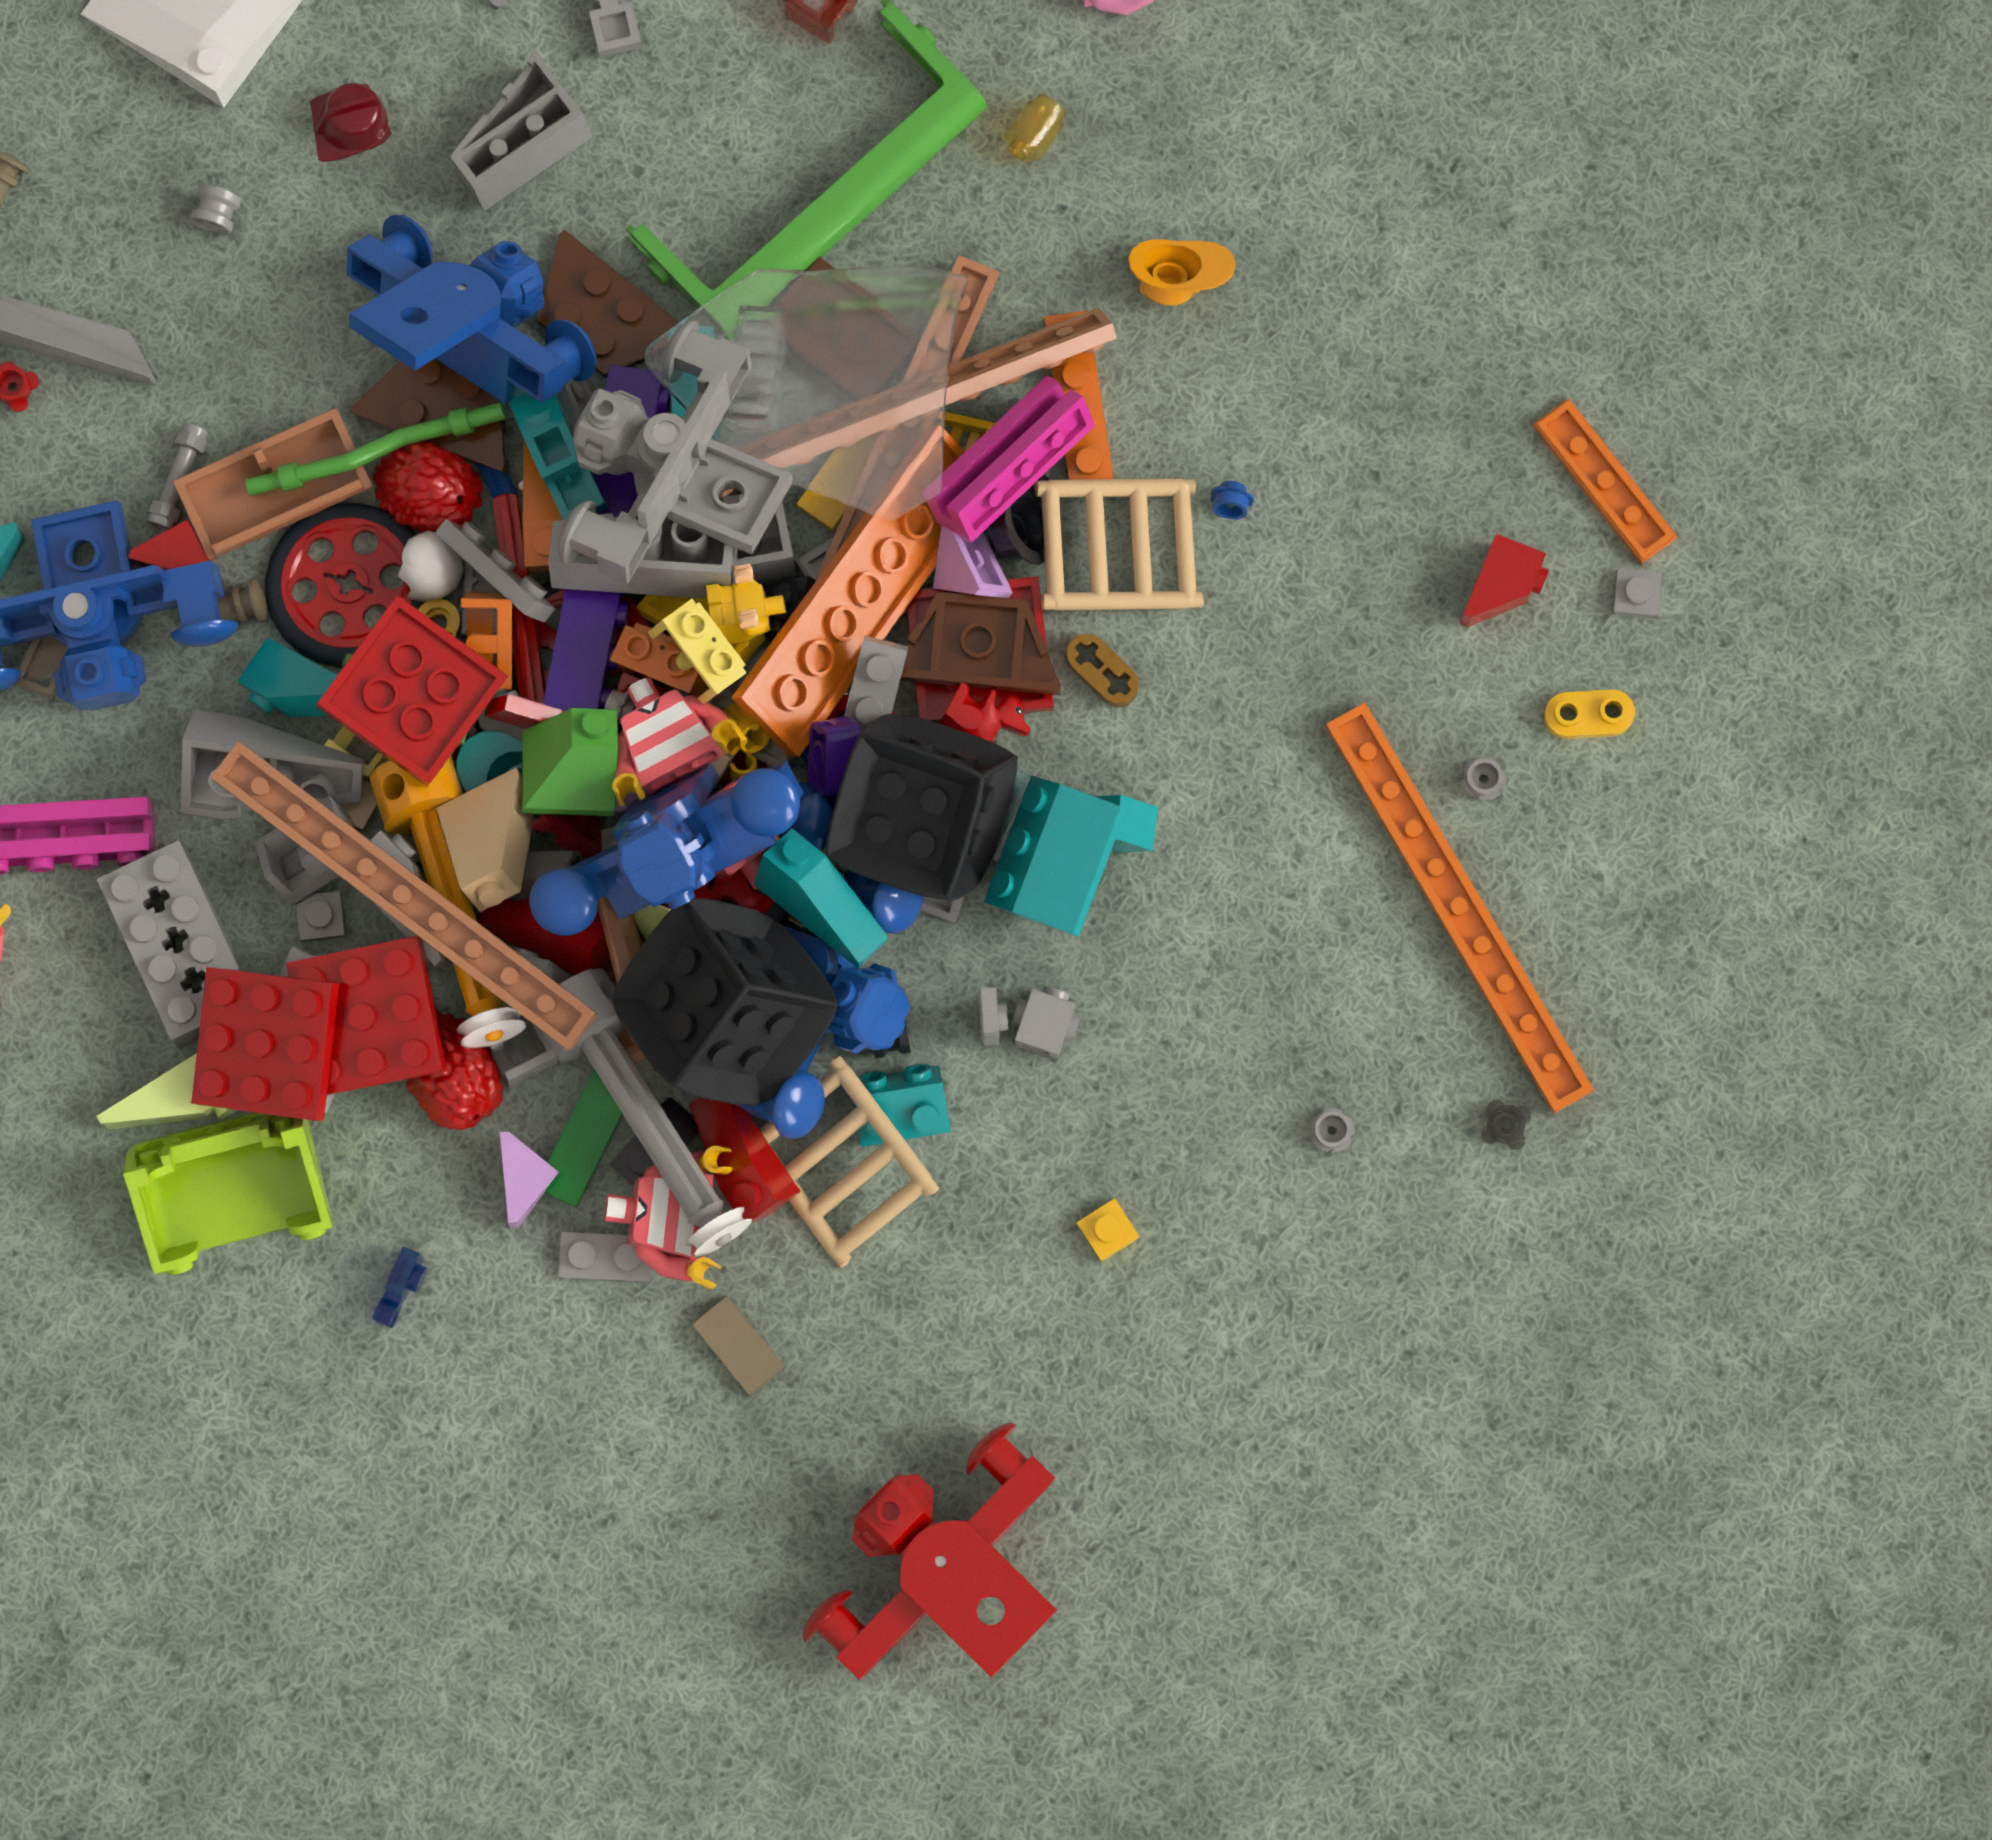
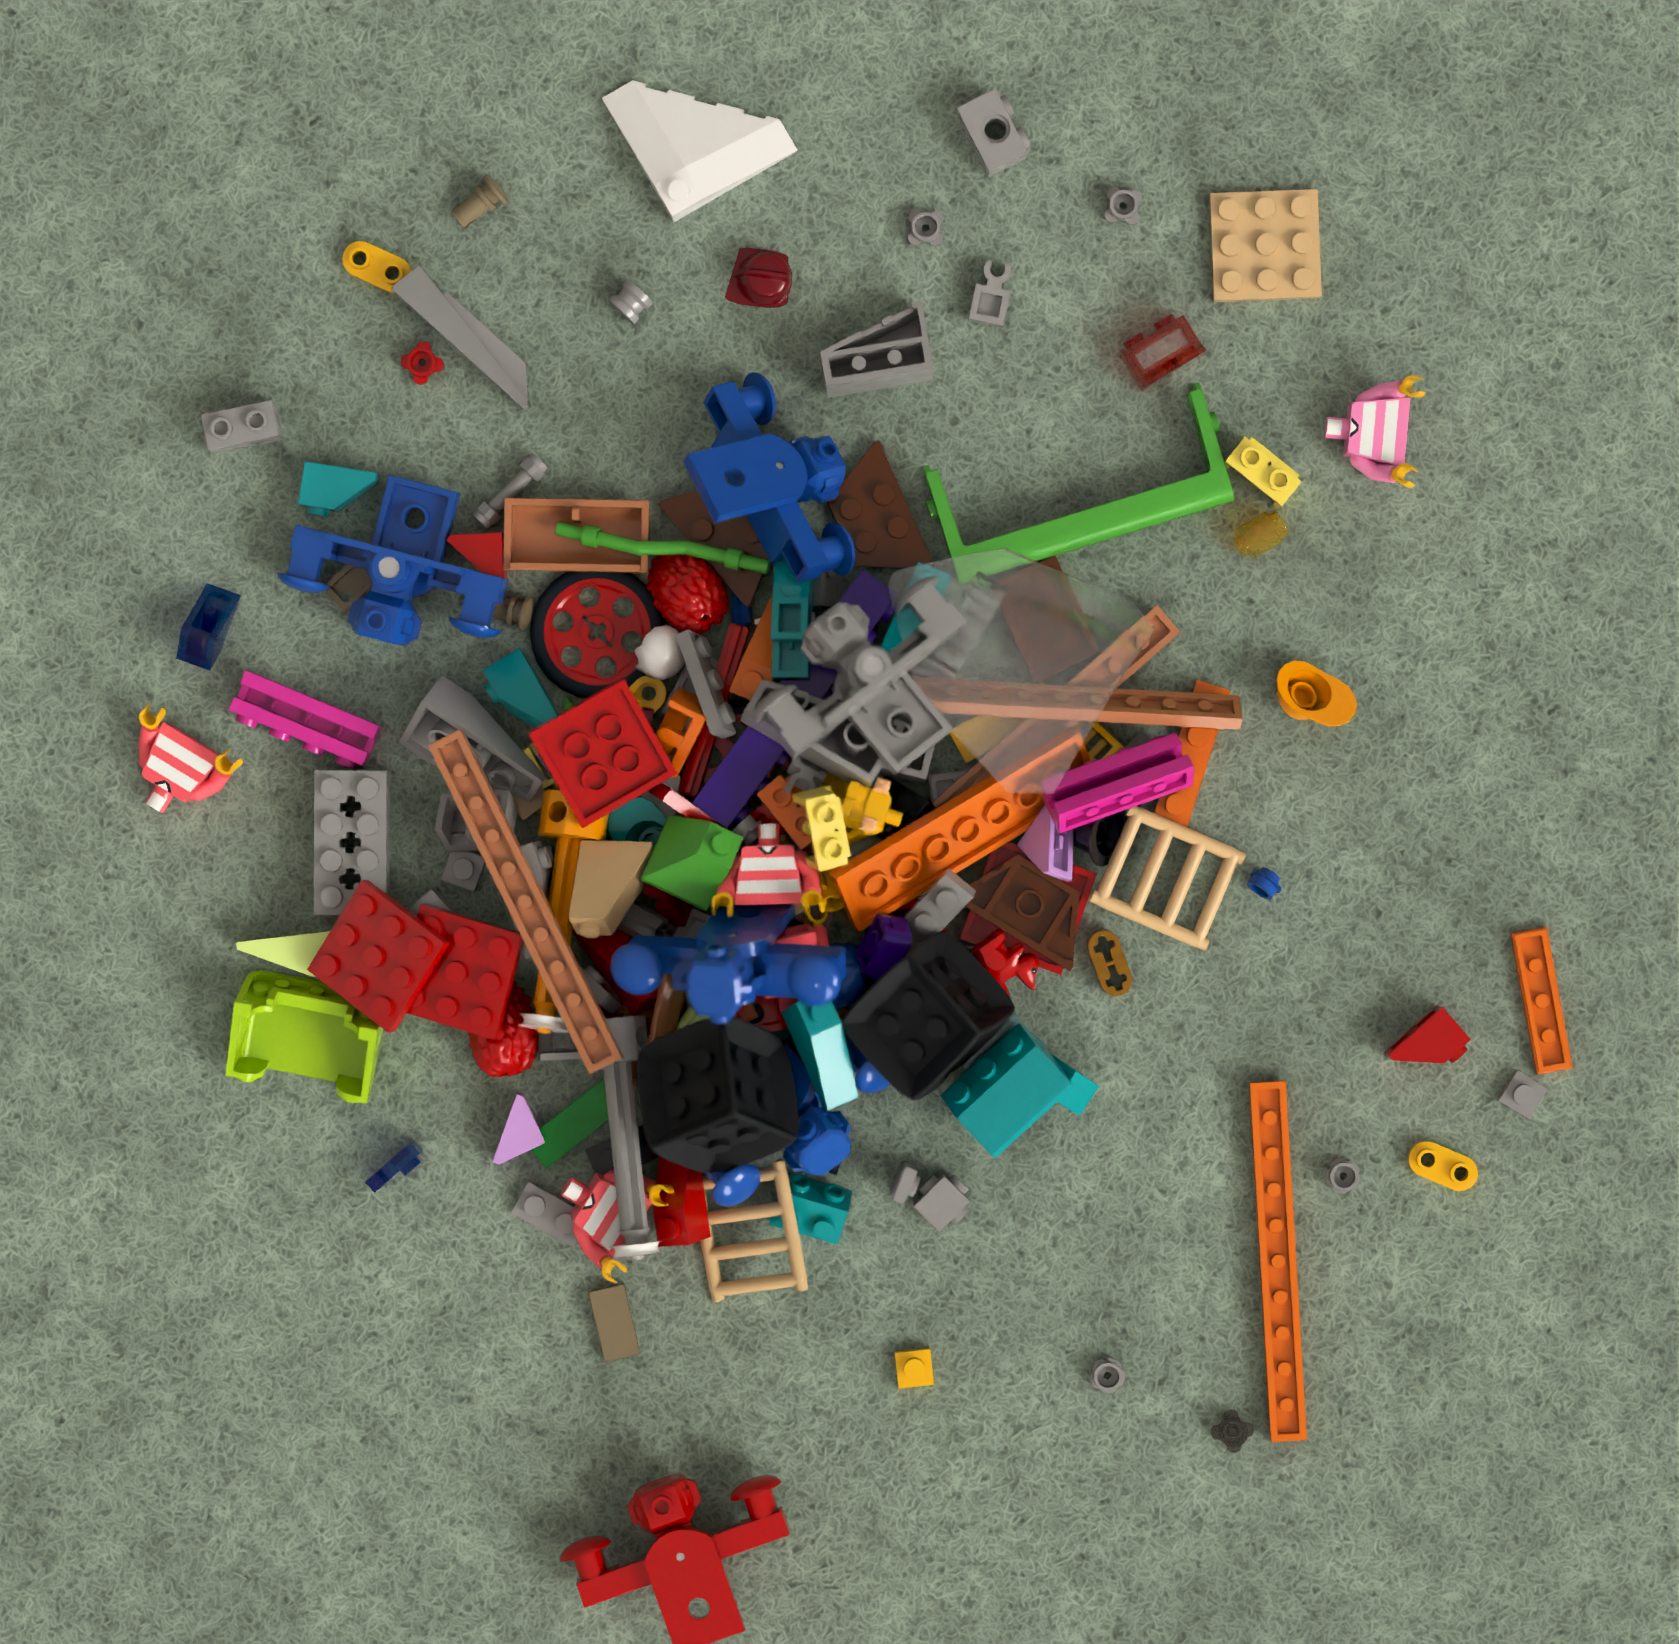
camera: 25 degrees right, 10 degrees up
(651, 610) = (804, 775): none -> light grey plate
(1004, 56) = (1263, 470): none -> light yellow window

